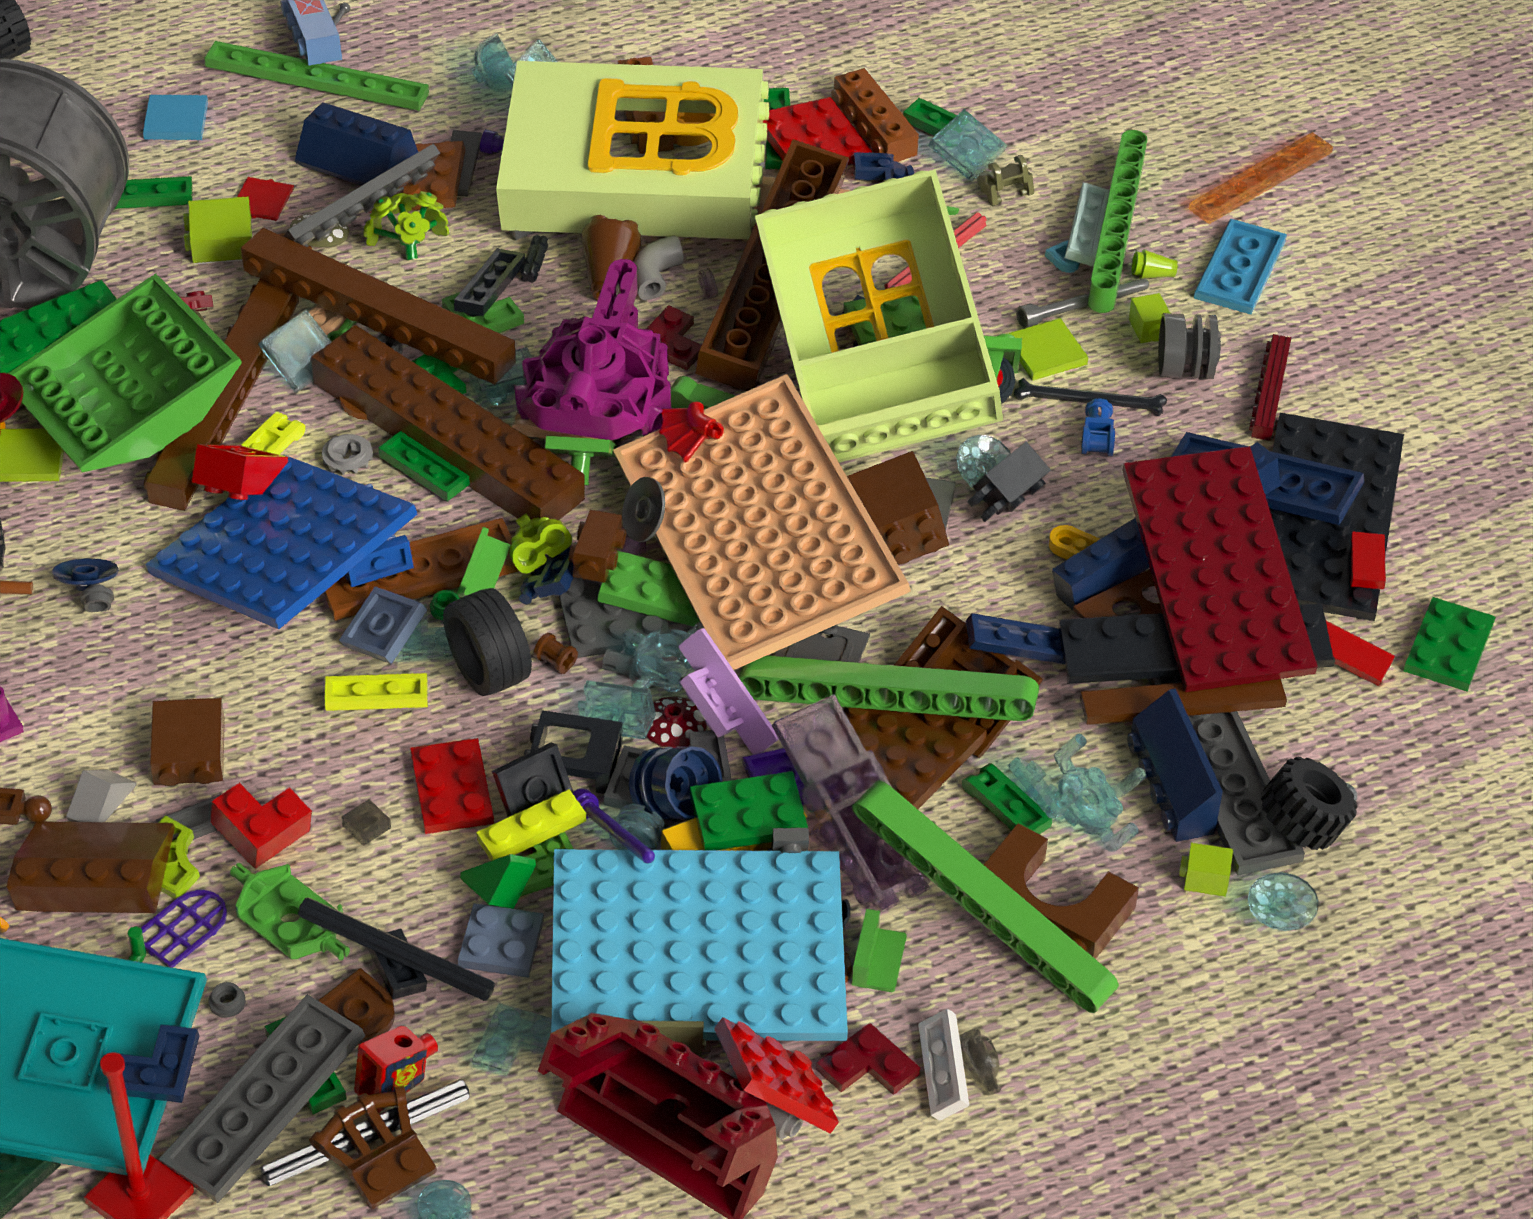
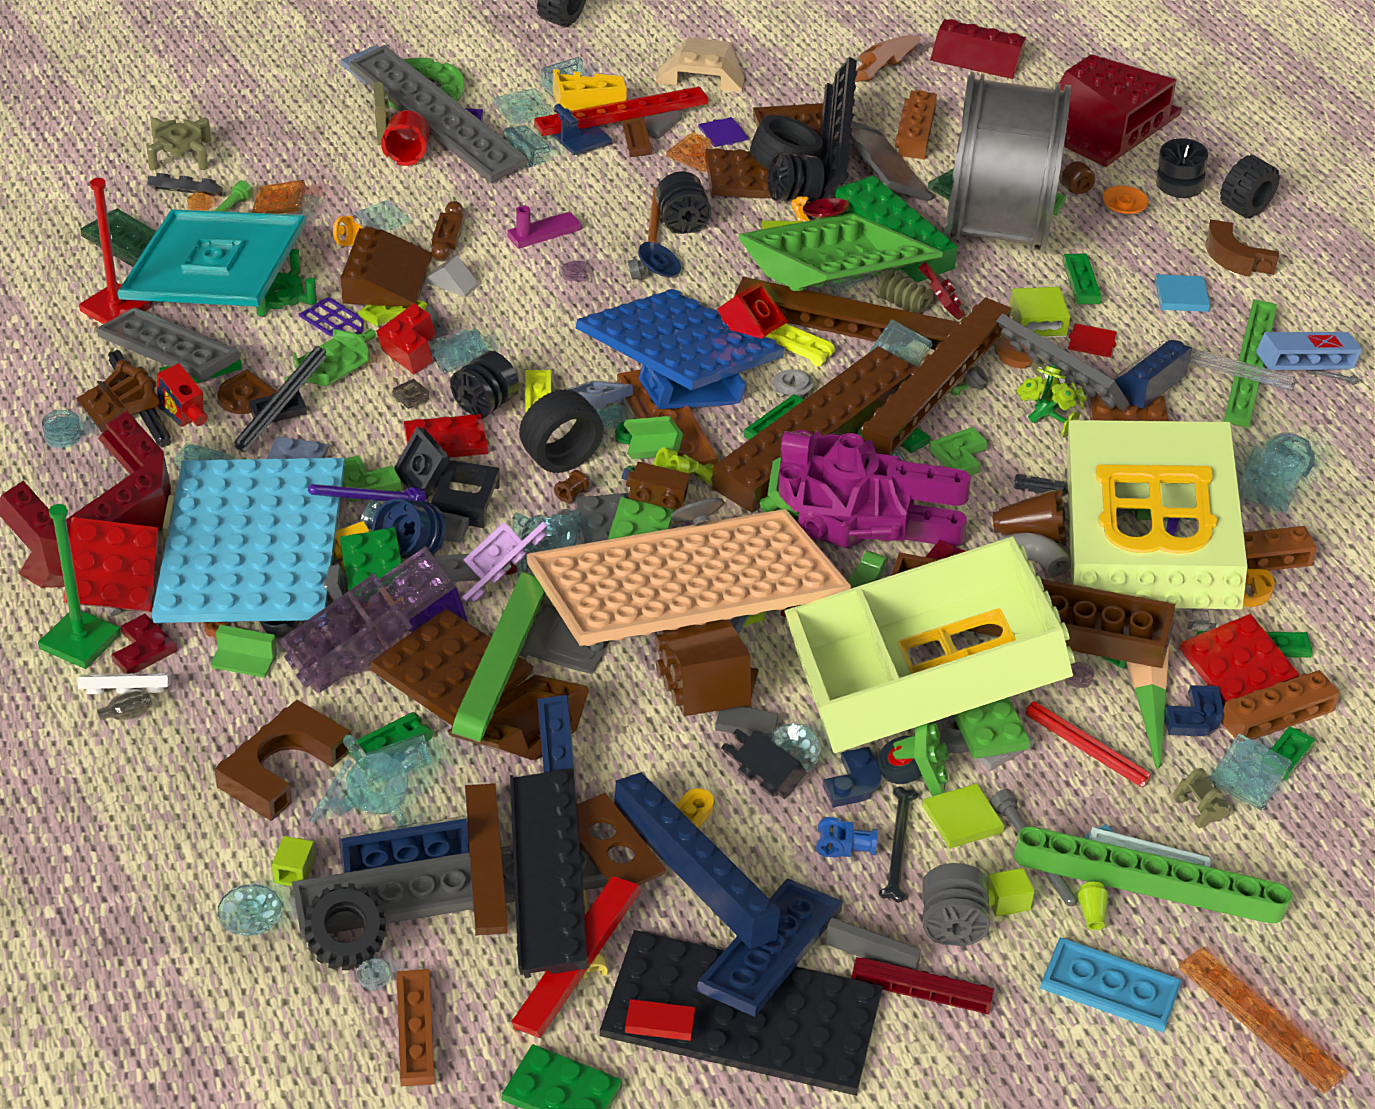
camera: 90 degrees right, 5 degrees down
(89, 666) = (574, 271): none -> clear purple tile
(105, 67) = (1236, 256): none -> reddish brown arch
(168, 1070) = (180, 282): dark blue plate -> none
(187, 741) = (493, 309): reddish brown brick -> none
(223, 992) = (262, 335): dark grey plate -> none
(268, 773) = (457, 350): none -> clear light blue bracket
(339, 85) = (1241, 369): none -> clear axle
(372, 731) = (484, 383): none -> black wheel
(489, 282) = (990, 448): black plate -> none
(500, 880) = (336, 445): green slope -> none
(532, 826) = (387, 464): neon yellow plate -> none
(619, 703) = (505, 511): clear light blue hinge -> none
(688, 428) = (791, 537): red arm -> none
(866, 1127) = (78, 635): none -> green tile
(986, 896) = (261, 695): bright green beam -> none
(1018, 426) = (860, 781): none -> dark blue plate
(1107, 839) = (333, 786): none -> clear light blue piece
(1218, 569) = (618, 870): dark red plate -> none
(1239, 409) = (871, 945): none -> dark grey tile
(1404, 754) = (415, 1028): none -> dark orange plate

